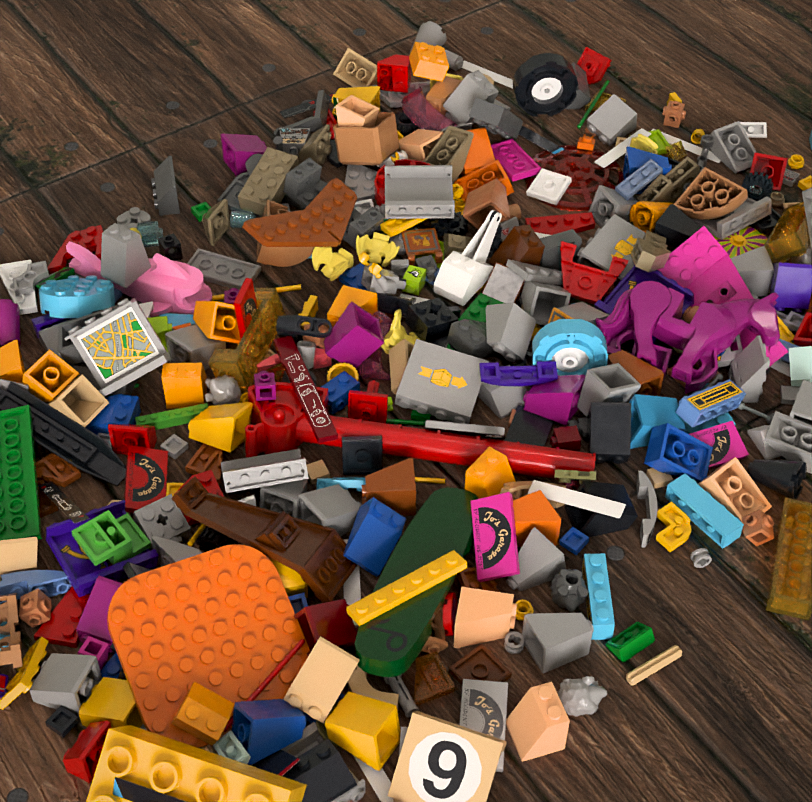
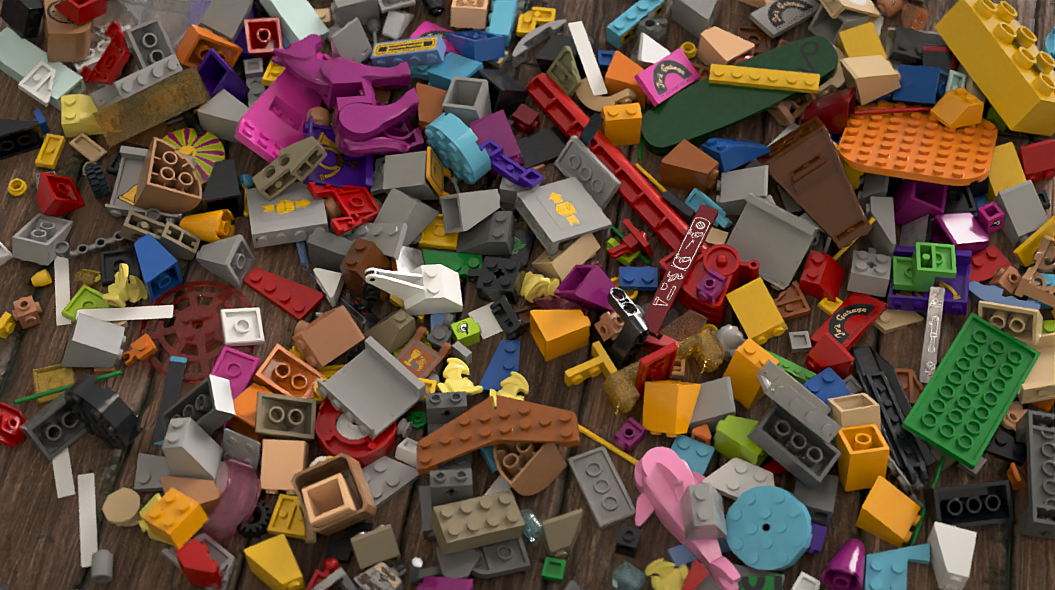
camera: 135 degrees left, 10 degrees up
(378, 279) = (504, 335): light grey torso -> none
(638, 179) = (186, 245): sand blue tile -> none

